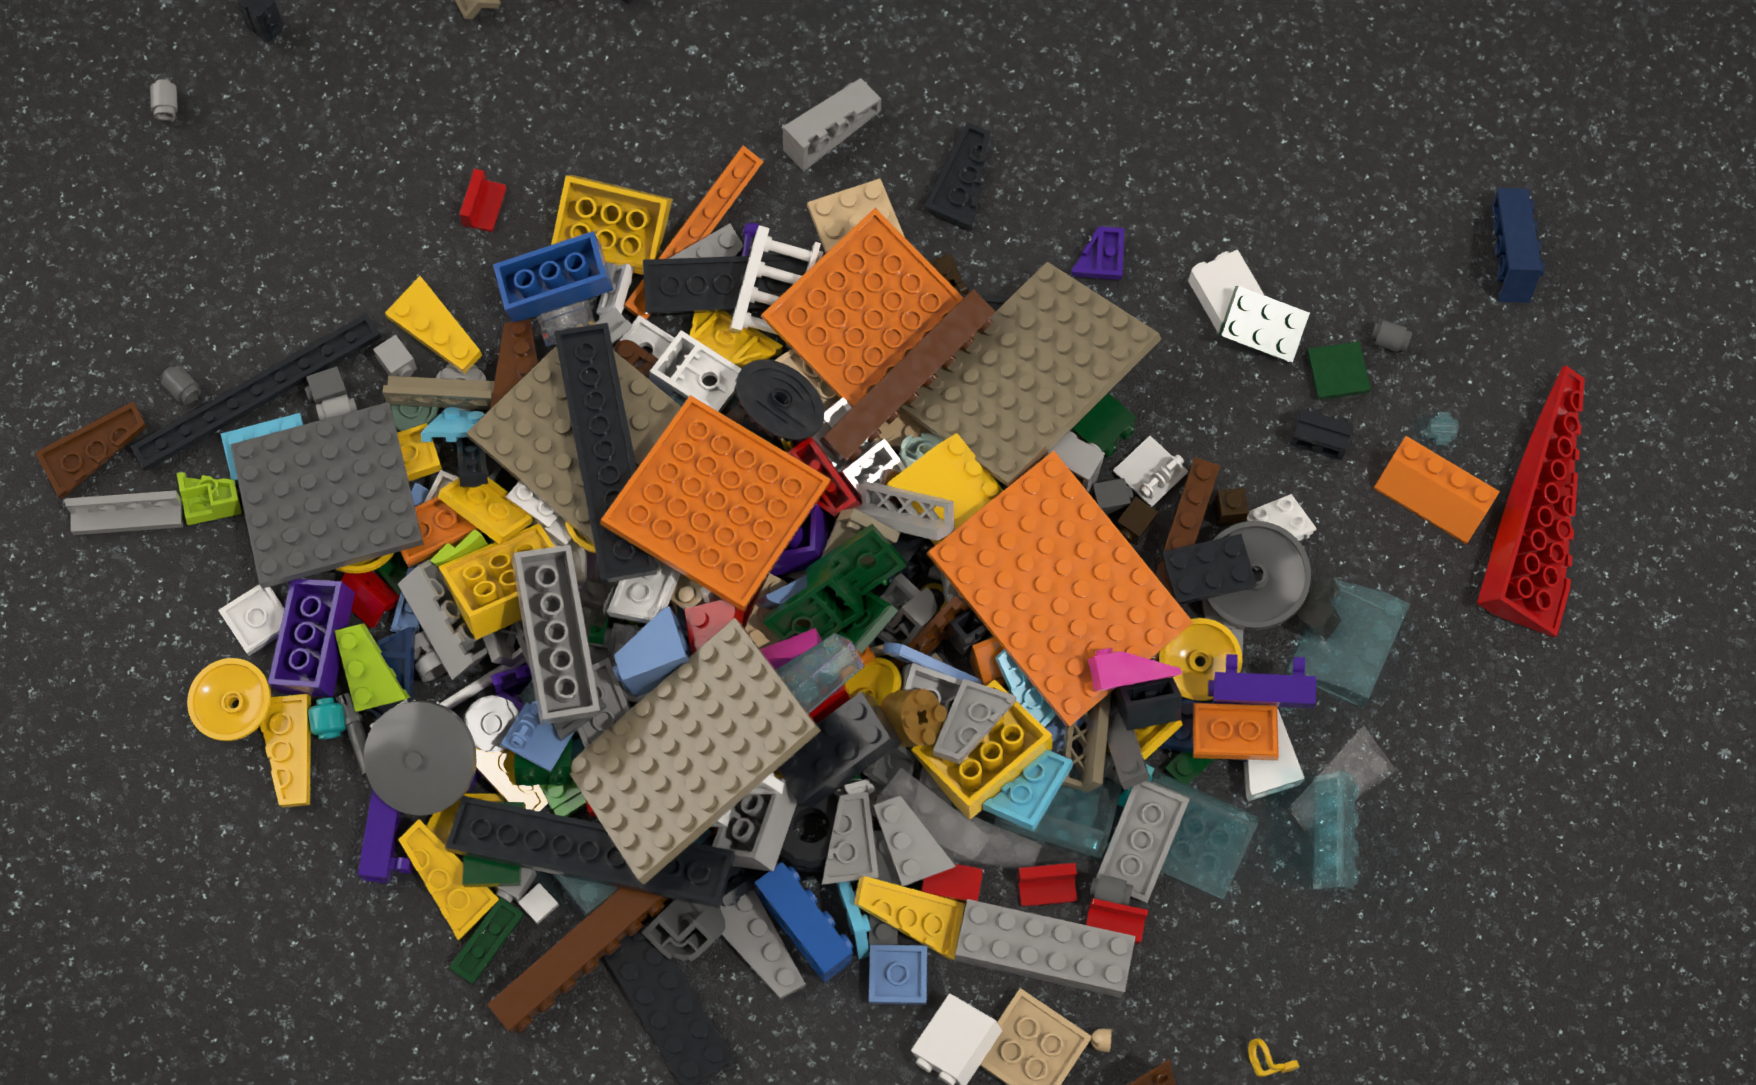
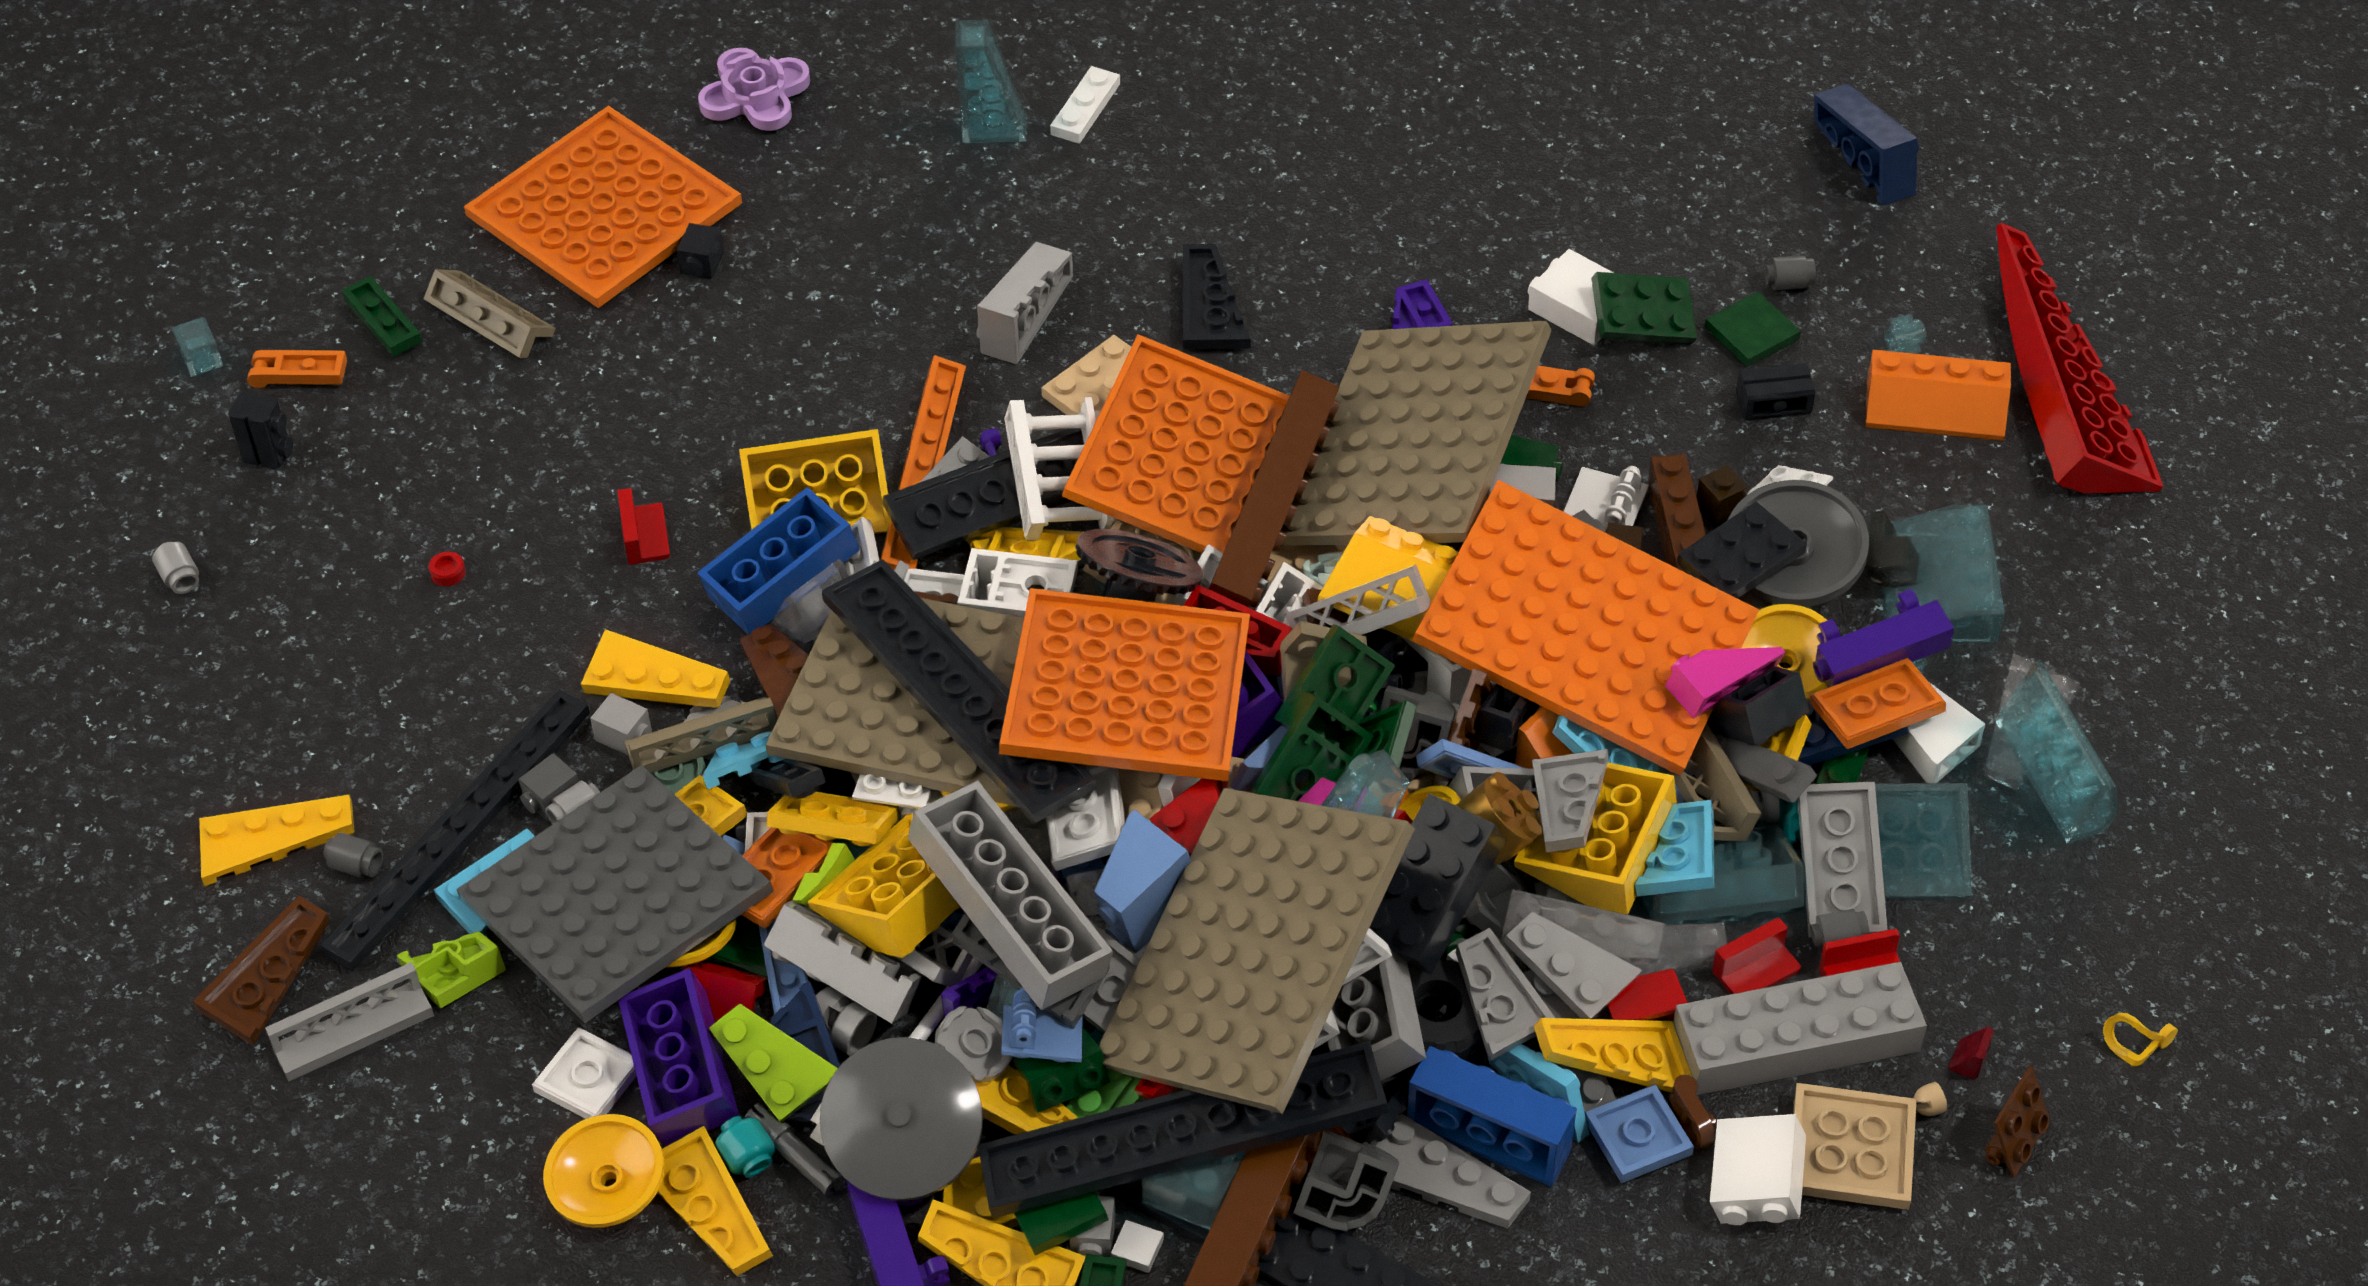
camera: 20 degrees left, 20 degrees down
(125, 338) = (250, 836): none -> yellow wing
(340, 177) = (447, 568): none -> red tile
(939, 988) = (1690, 1113): none -> reddish brown plate
(1150, 1018) = (1971, 1053): none -> dark red slope
(1167, 353) = (1551, 383): none -> orange plate

